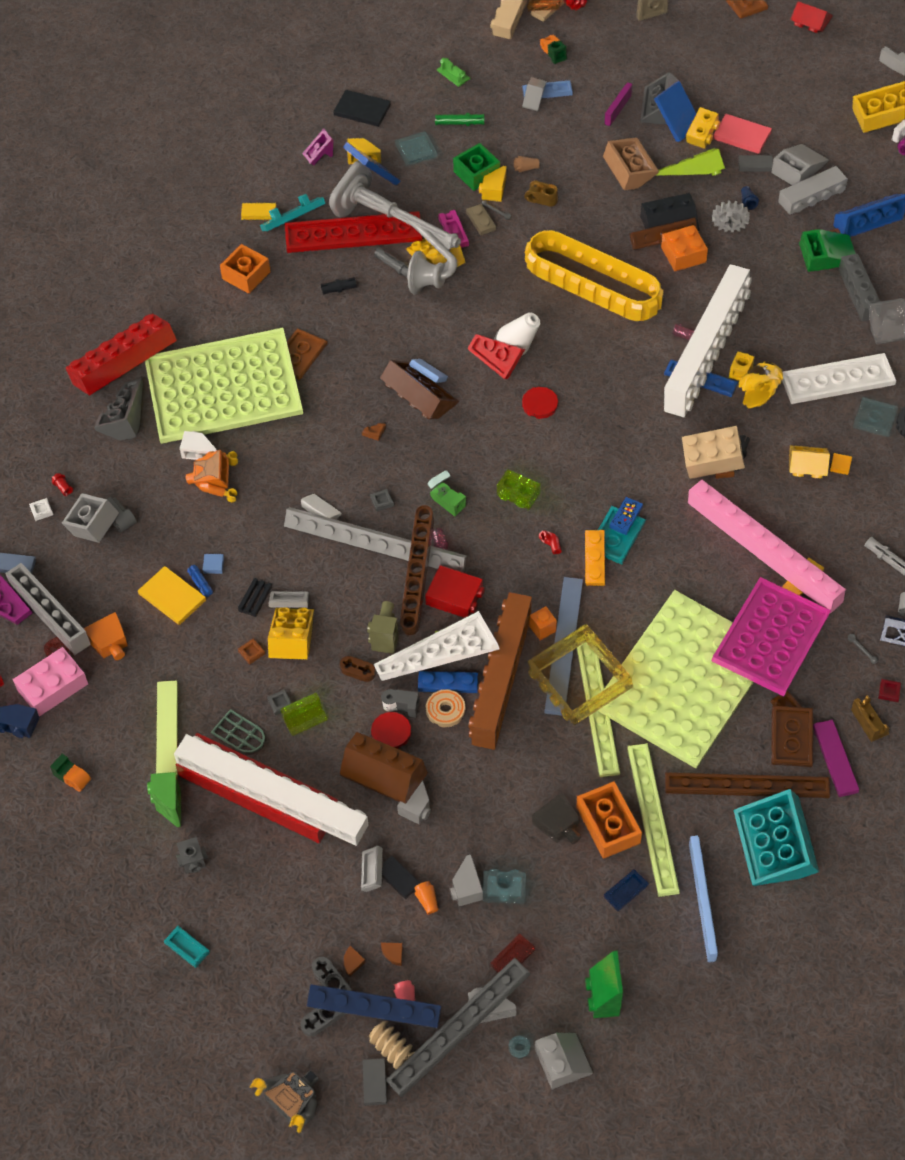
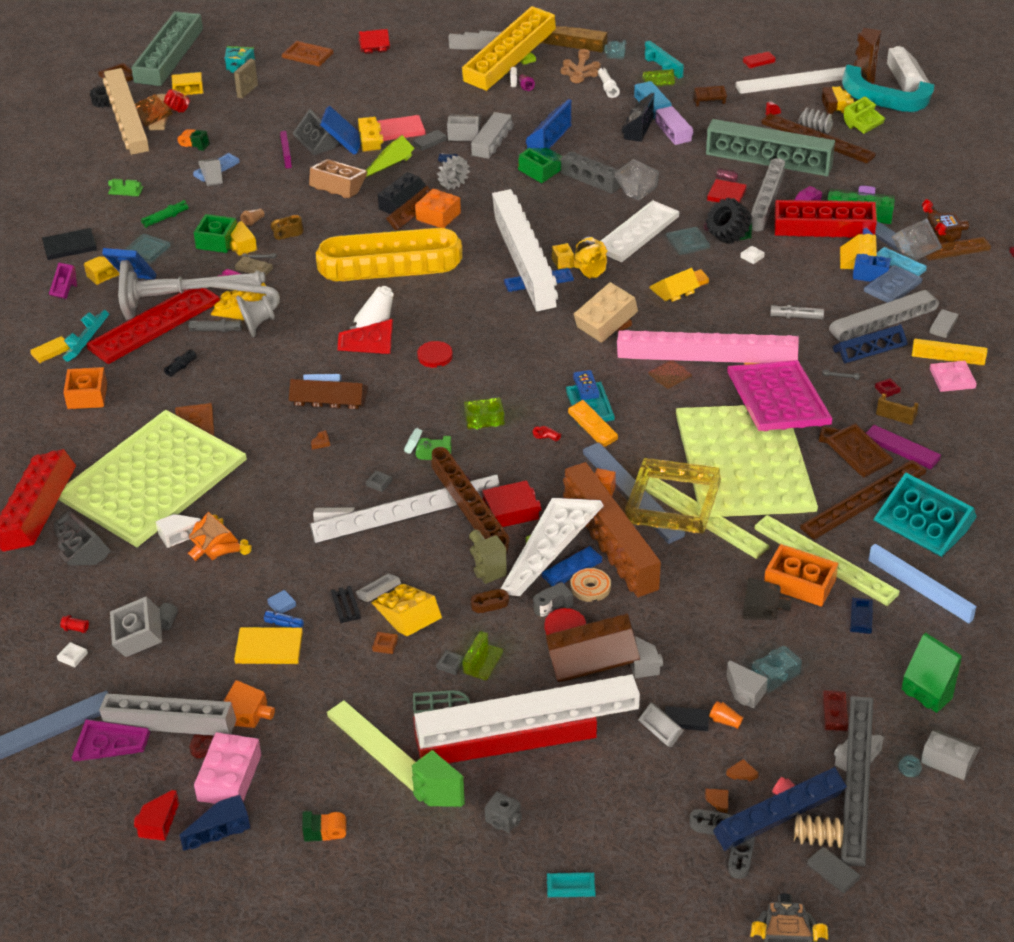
camera: 40 degrees left, 15 degrees down
(682, 332) = (495, 258): clear pink pin -> none
(713, 549) = (669, 374): none -> clear orange piece

